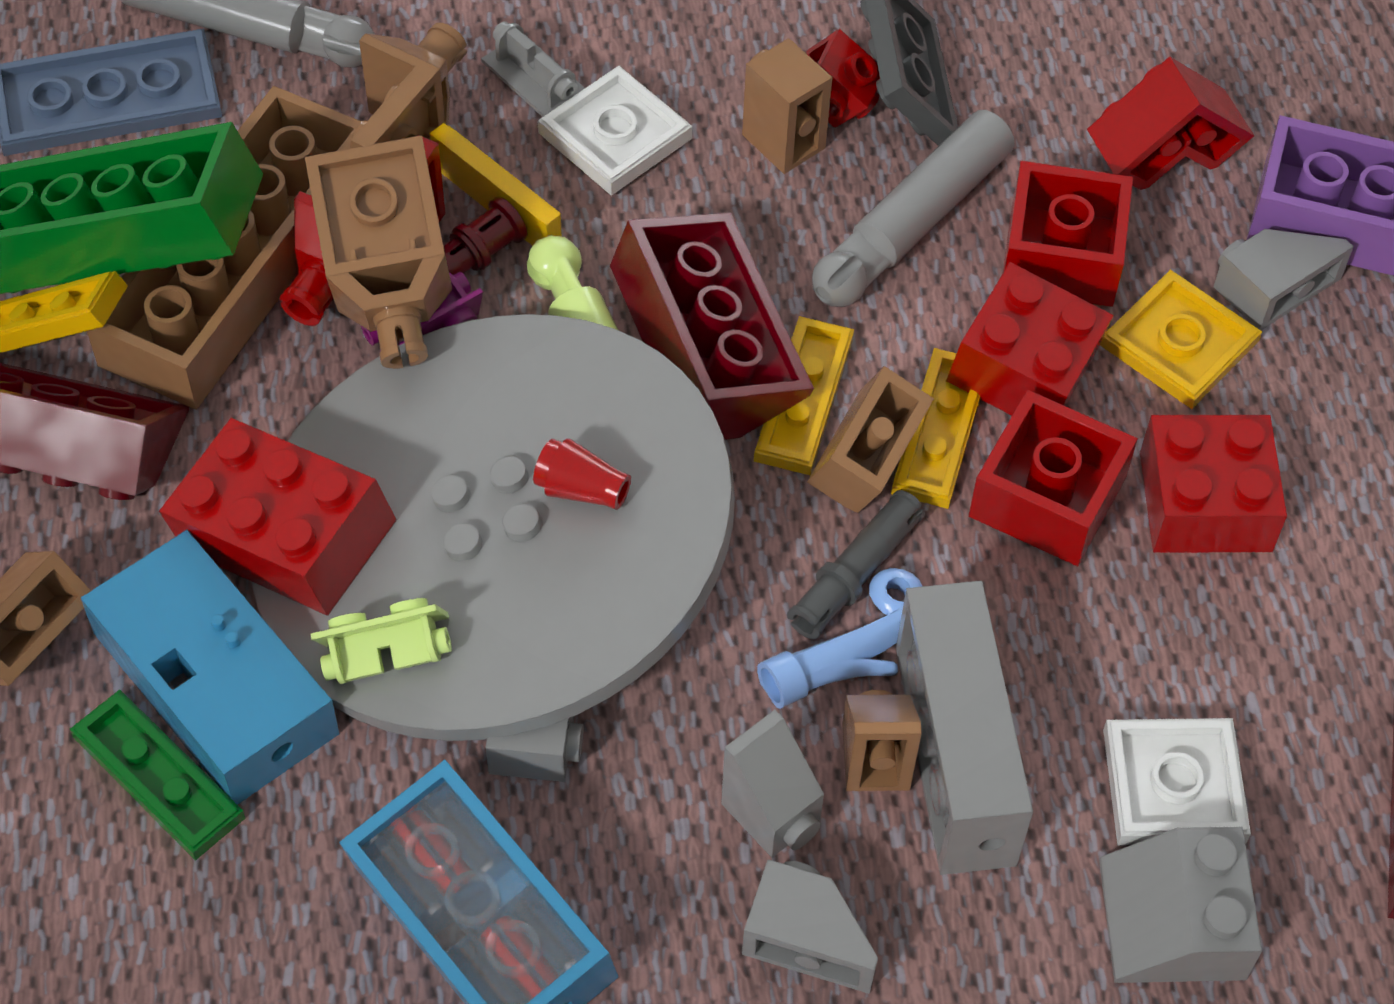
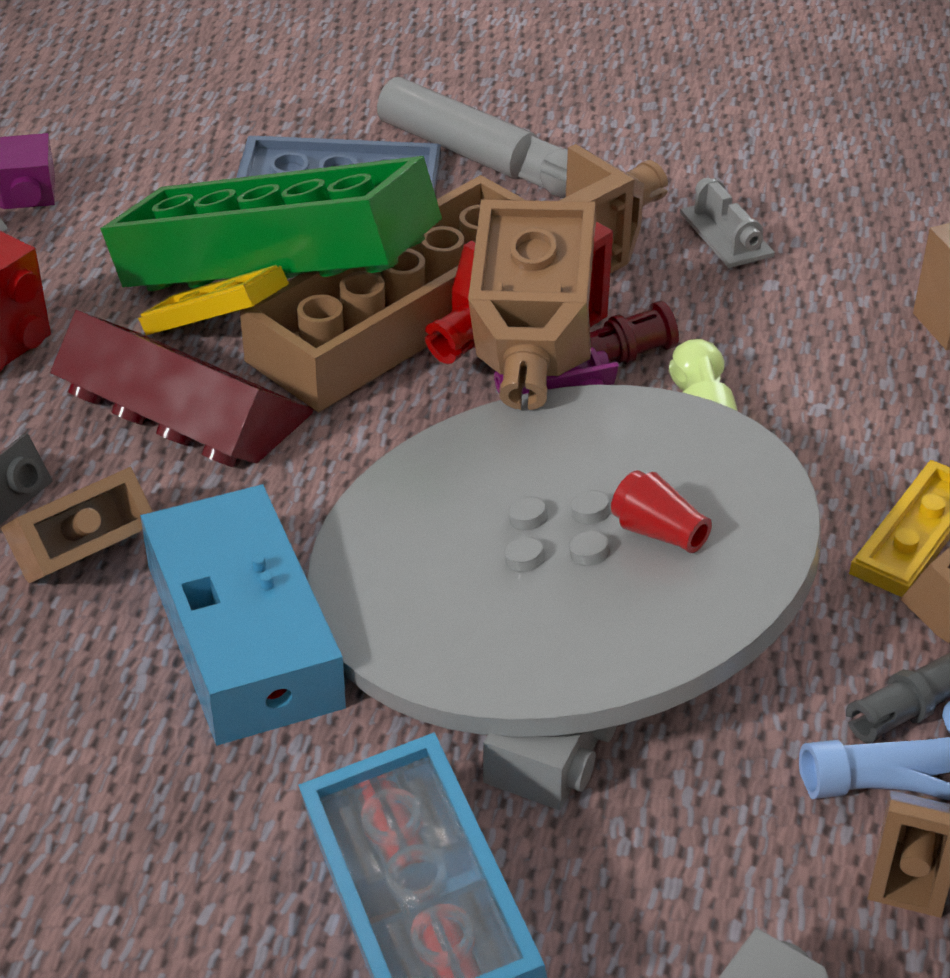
camera: 20 degrees right, 15 degrees down
(157, 774) = (155, 698): green tile -> none
(280, 515) = (359, 495): red brick -> none
(407, 632) = (443, 611): yellowish green hinge -> none
(486, 179) = (645, 282): yellow tile -> none
(615, 130) = (789, 281): white plate -> none
(711, 316) = (846, 430): dark red slope -> none
(771, 786) = (781, 855): light grey slope -> none

